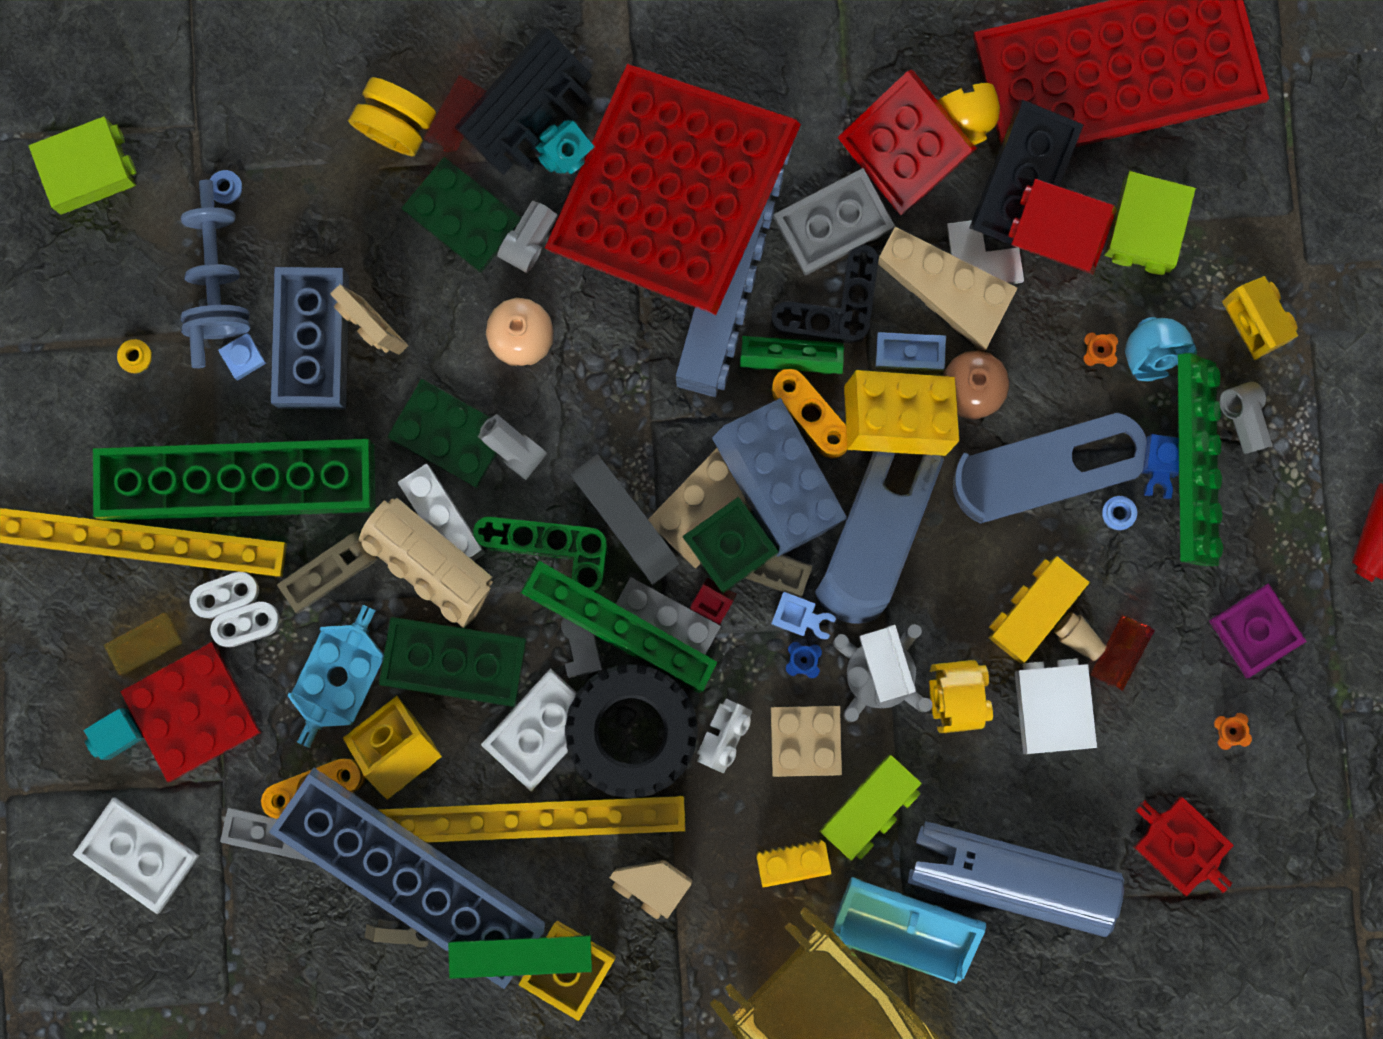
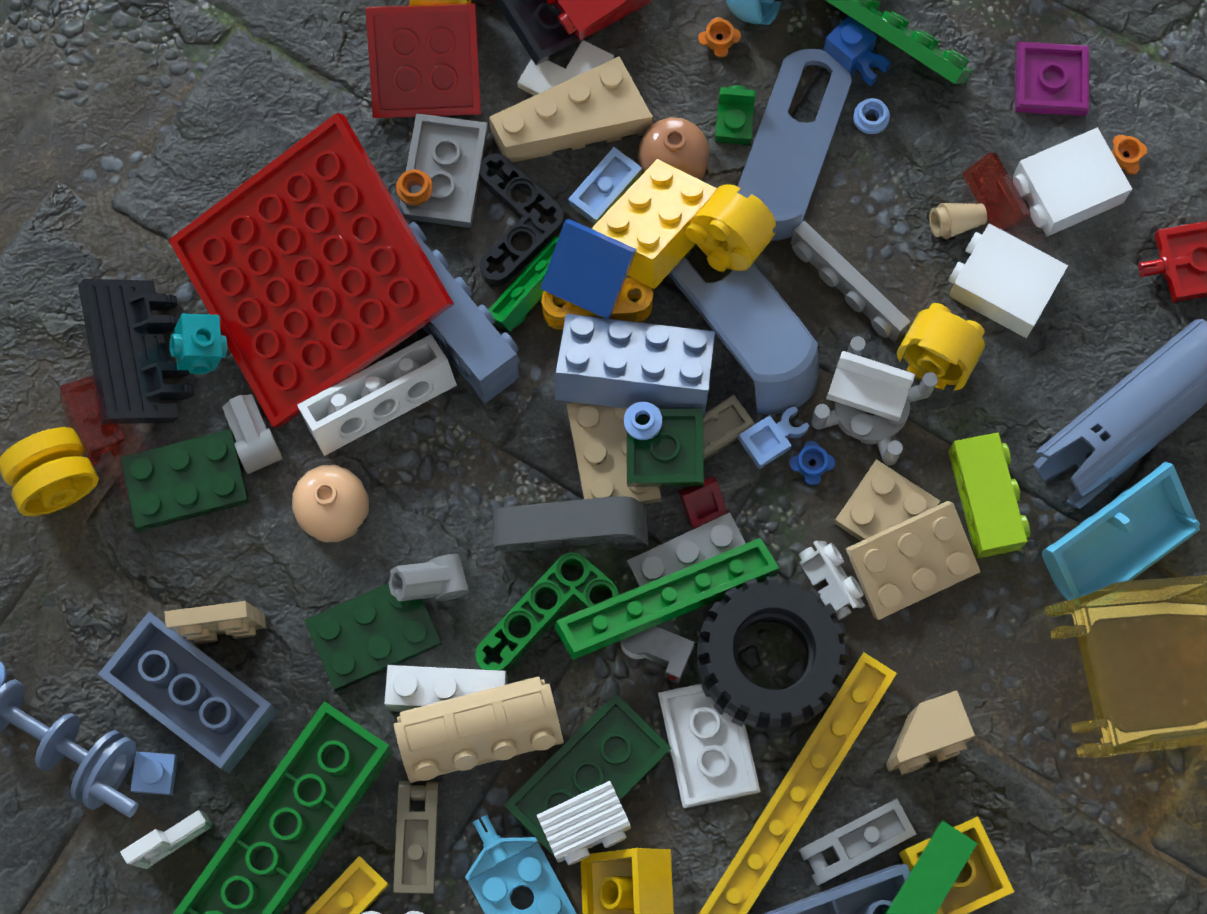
camera: 60 degrees left, 10 degrees down
(143, 360) = (84, 880): yellow plate -> none
(198, 402) = (160, 844): none -> white tile
(413, 683) = (584, 823): none -> white brick
(544, 886) = (858, 841): none -> light grey plate
(620, 306) = (377, 394): none -> white brick
(739, 525) = (647, 431): none -> light blue plate
(779, 785) = (913, 560): none -> tan plate
(793, 863) = (992, 597): yellow brick -> none
(804, 202) = (411, 178): none -> orange plate
(822, 390) = (588, 268): none -> blue tile
(932, 475) = (732, 229): none -> yellow brick
(967, 575) = (857, 290): none -> light grey plate
(1037, 608) = (909, 235): yellow brick -> none
(1041, 408) = (735, 115): none -> green bracket
(1174, 704) = (1071, 182): none -> white brick

